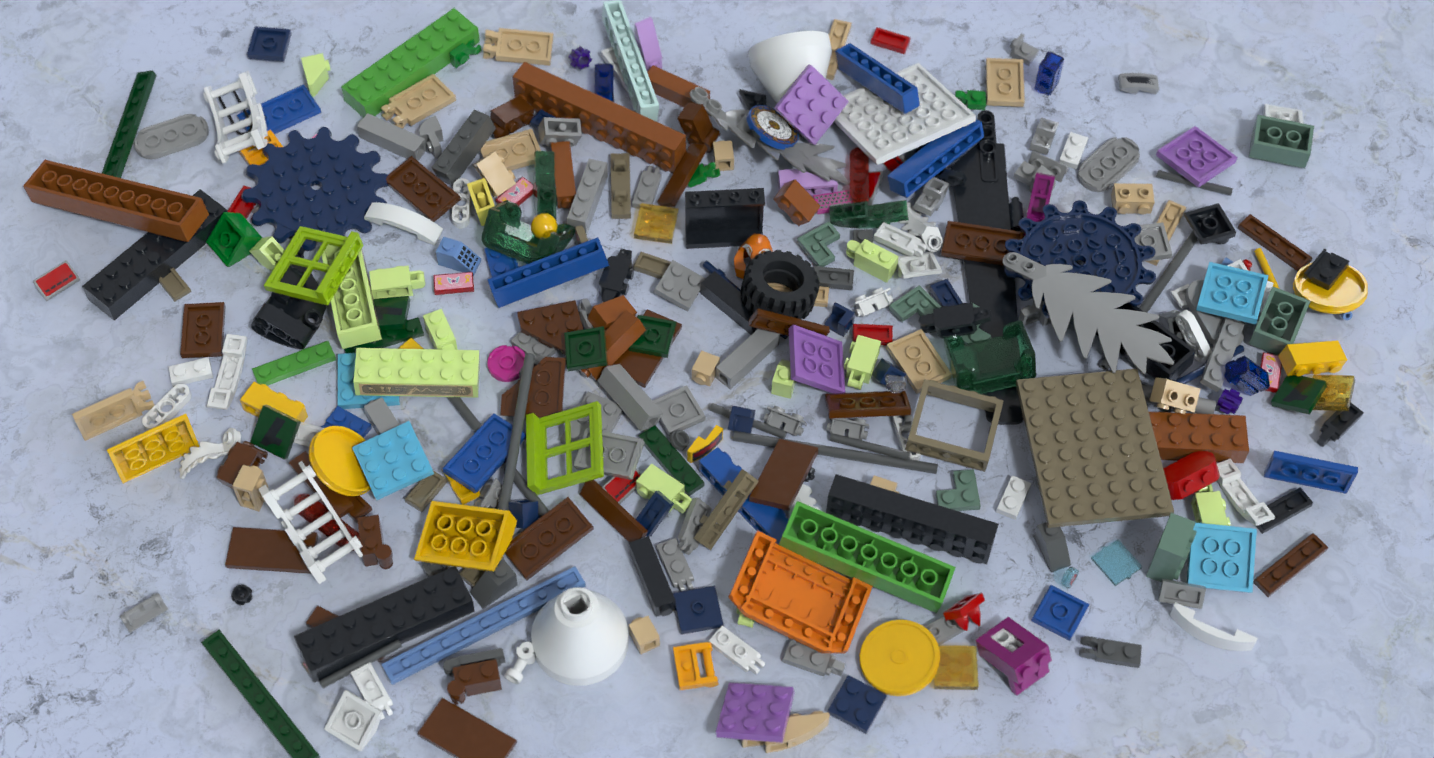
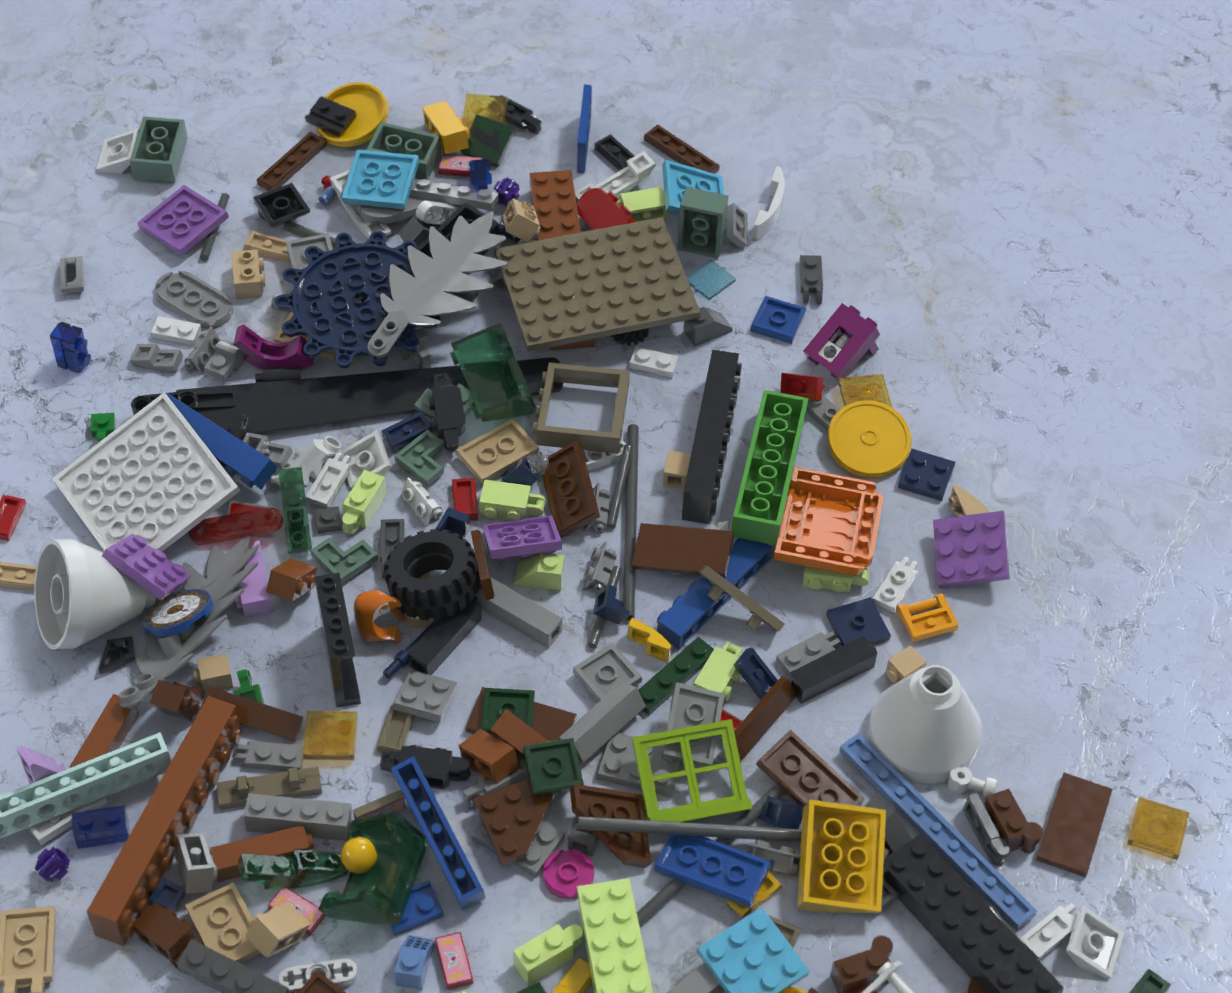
camera: 100 degrees left, 5 degrees down
(481, 198) = (323, 939): light yellow brick -> none
(679, 439) = (648, 667): dark grey plate -> none
(692, 525) = (761, 639): light grey hinge -> none
(705, 368) = (545, 652): tan brick -> none
(812, 660) = (890, 516): light grey hinge -> none
(832, 199) = (273, 549): tile -> none
(877, 78) = (99, 498): blue brick -> none
(964, 496) = (658, 401): sand green plate -> none
(977, 242) = (329, 400): reddish brown tile -> none
(1005, 82) = (75, 396): tan plate -> none
(1022, 50) = (23, 382): light grey bracket -> none
(1069, 577) = (740, 310): clear light blue tile -> none
(1265, 267) = (327, 168): yellow bar -> none

